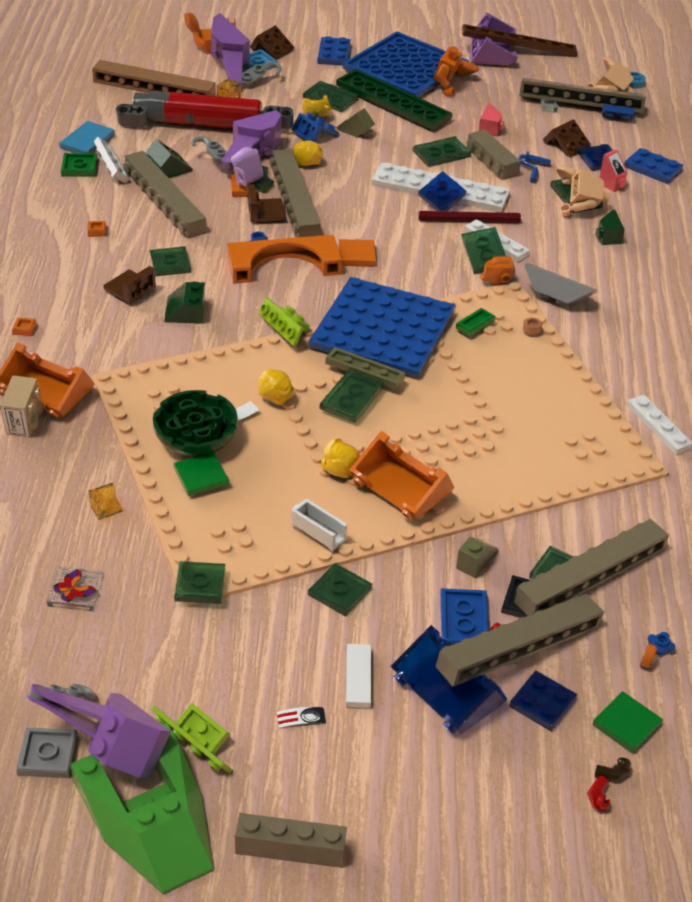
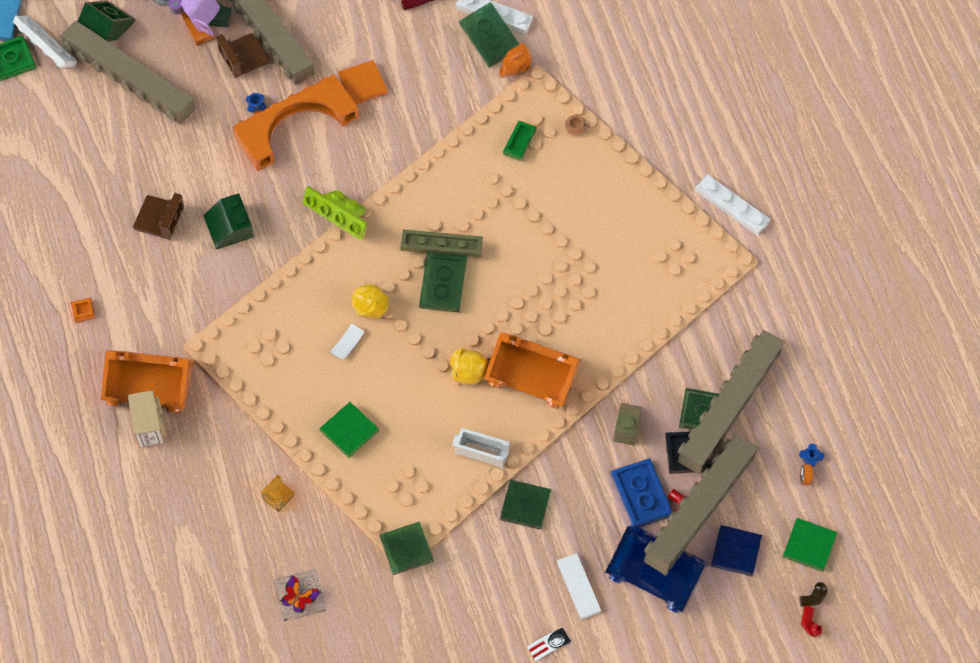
camera: 20 degrees left, 20 degrees up
(96, 228) = (81, 147): orange tile -> none
(170, 261) = (180, 165): clear green tile -> none
(195, 423) = (303, 362): dark green brick -> none
(383, 325) = (433, 179): blue plate -> none
(557, 286) = (580, 62): light grey wedge -> none

